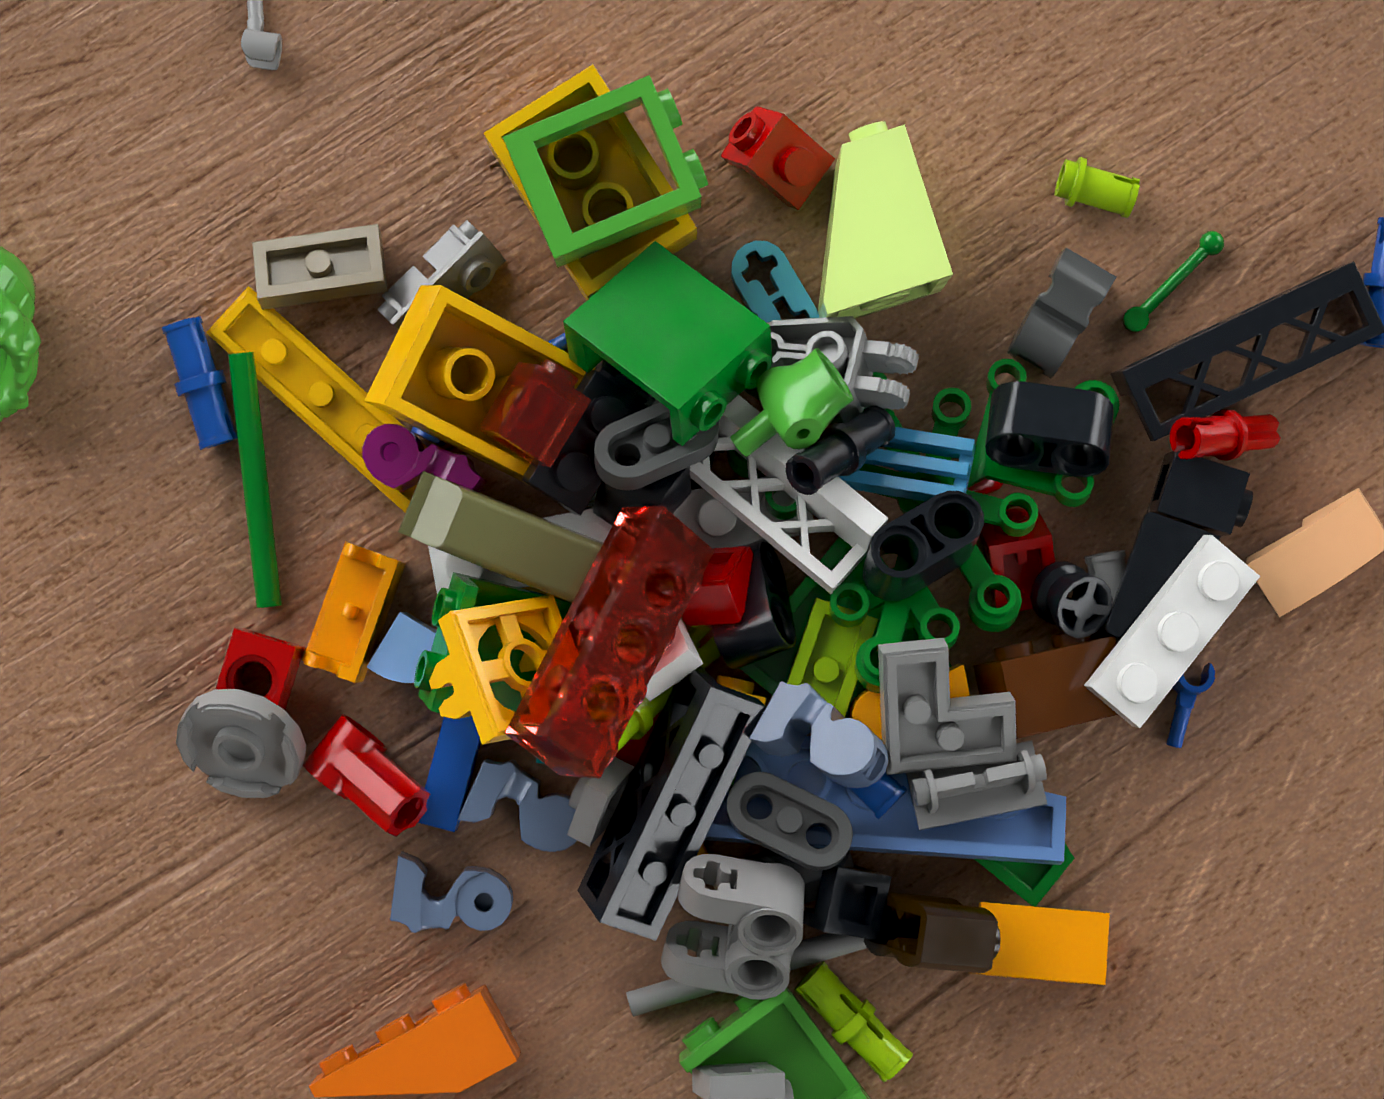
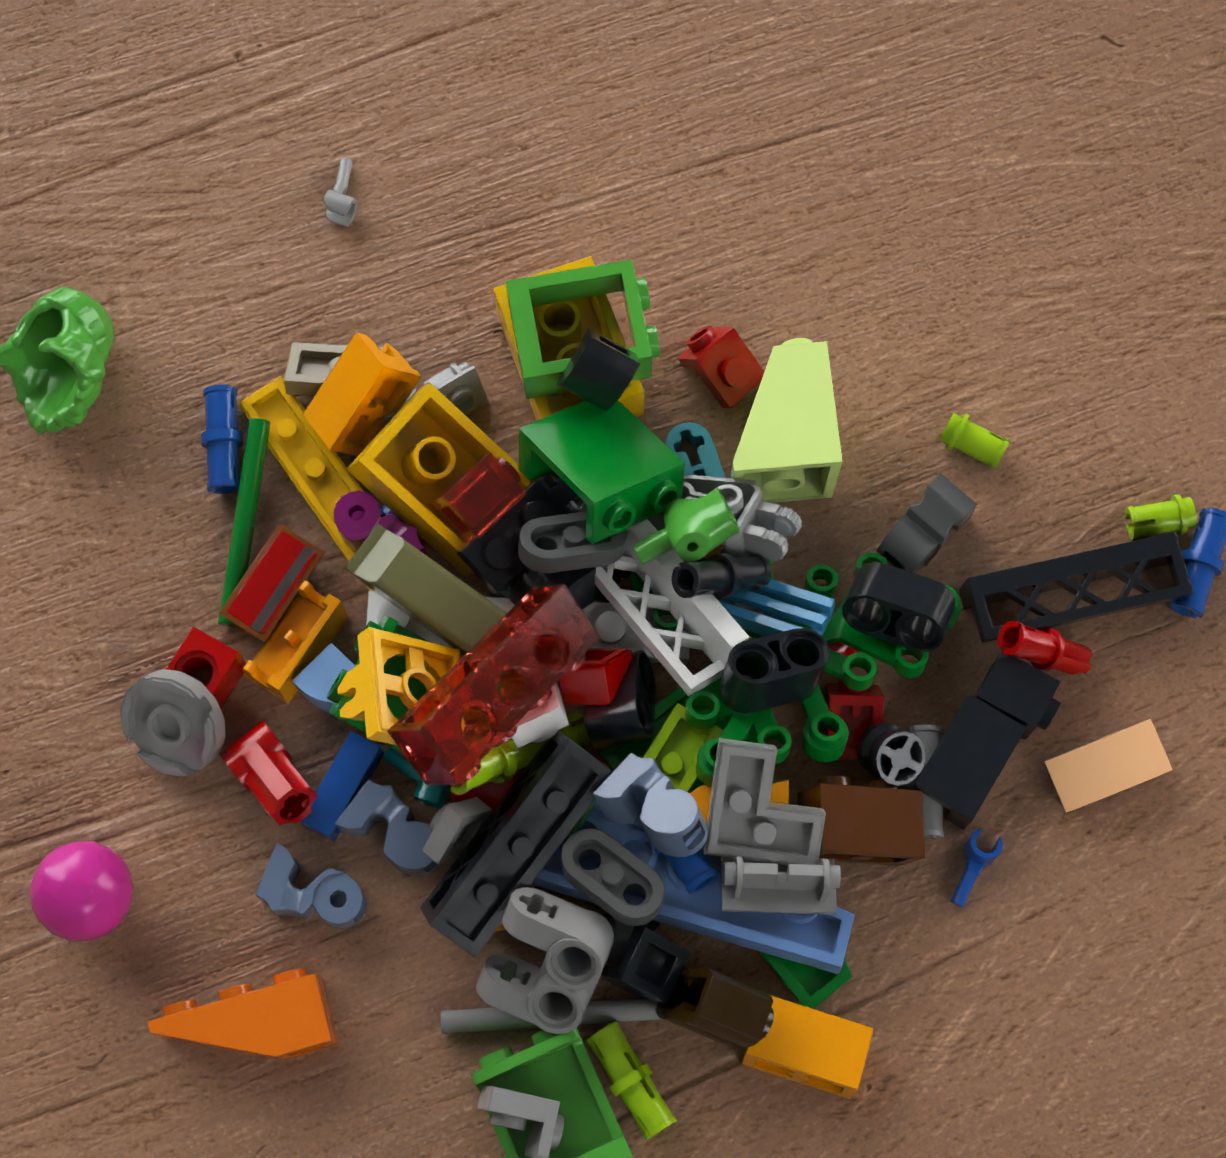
camera: 15 degrees right, 15 degrees down
(192, 958) = (81, 891): none -> dark pink piece
(309, 549) = (271, 583): none -> slope
(354, 299) = (359, 394): none -> light orange hinge
(645, 231) = (599, 370): none -> black brick
(1137, 318) = (988, 549): green hinge -> none
(1172, 630) = (971, 794): white plate -> none
(1333, 237) = (1161, 517): none -> lime pin

